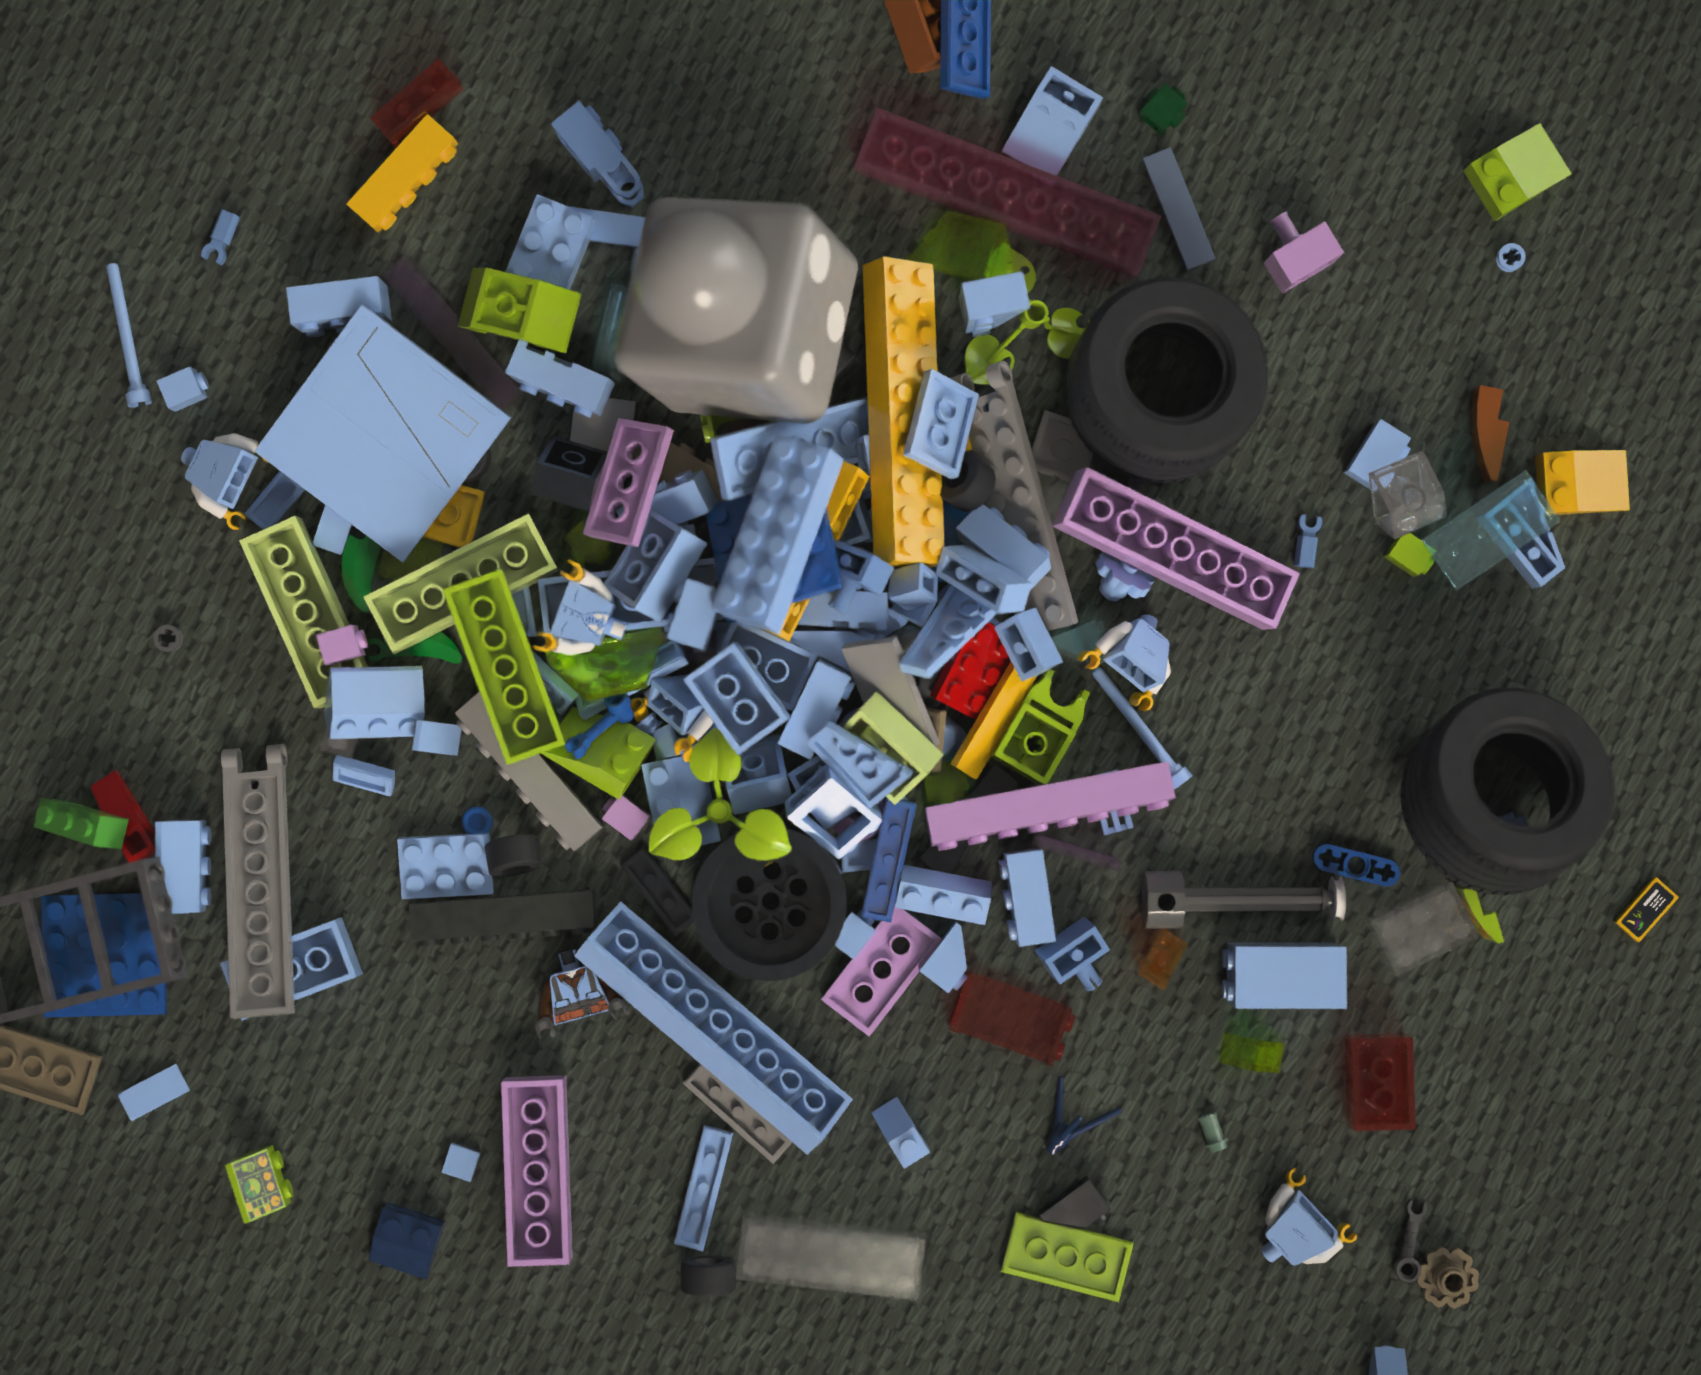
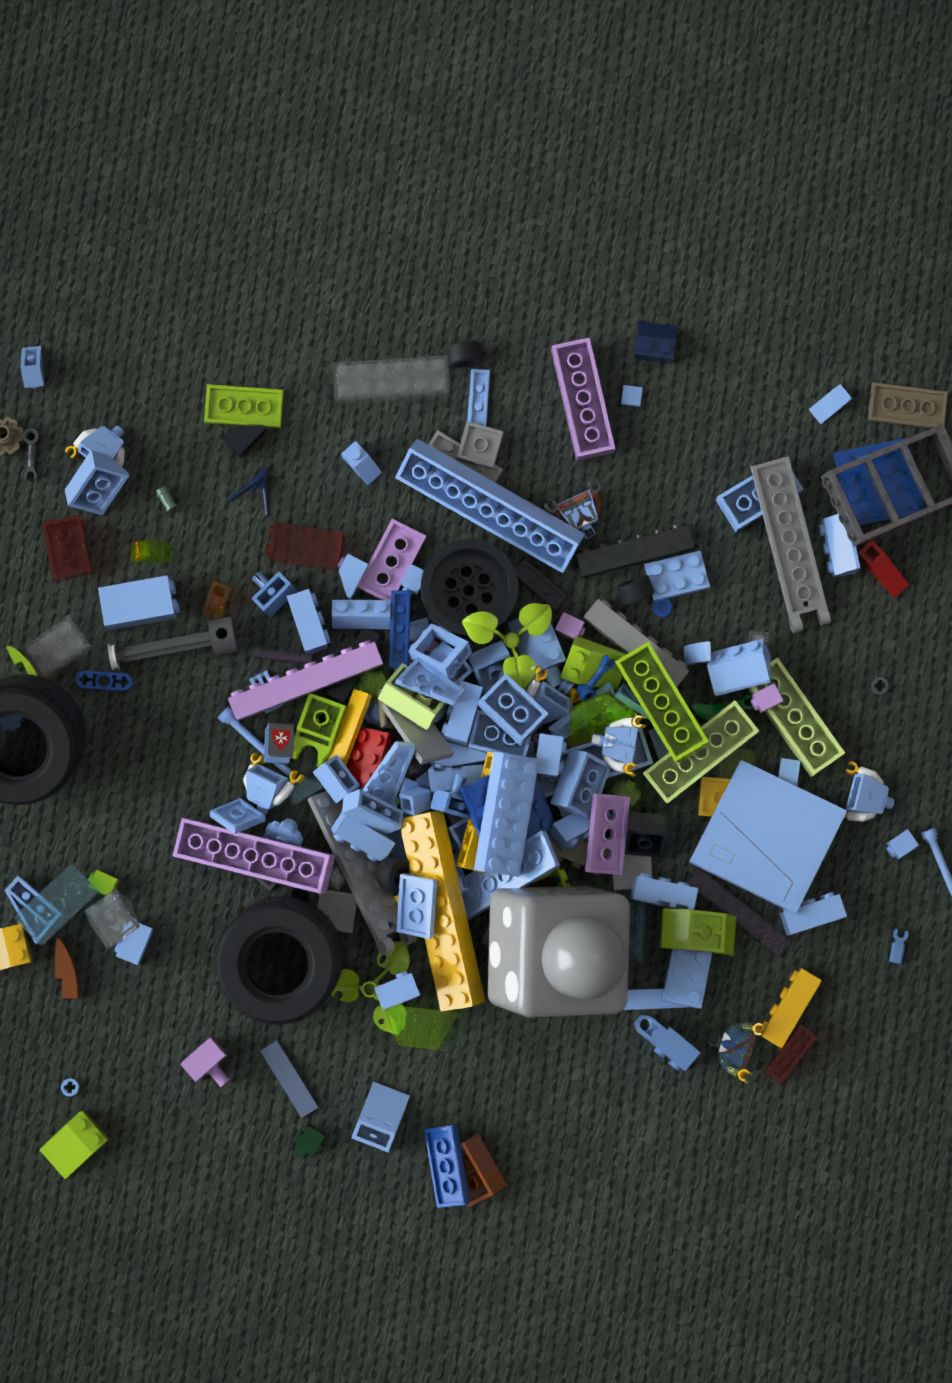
camera: 170 degrees right, 5 degrees down
(81, 823) = (907, 559): bright green brick -> none
(259, 1183) = (752, 360): slope -> none
(274, 501) = (830, 783): medium blue tile -> none
(358, 568) = (768, 751): green piece -> none
(363, 775) = (739, 622): light blue tile -> none
(496, 129) = (736, 1047): none -> torso
(711, 1127) = (480, 445): none -> light grey tile
(1007, 193) = (401, 1066): clear pink brick -> none
(1106, 717) = (278, 743): none -> piece
(1189, 616) = (237, 816): none -> light blue tile
(1307, 543) = (170, 878): medium blue bar -> none
(1320, 1175) = (95, 483): none -> light blue slope

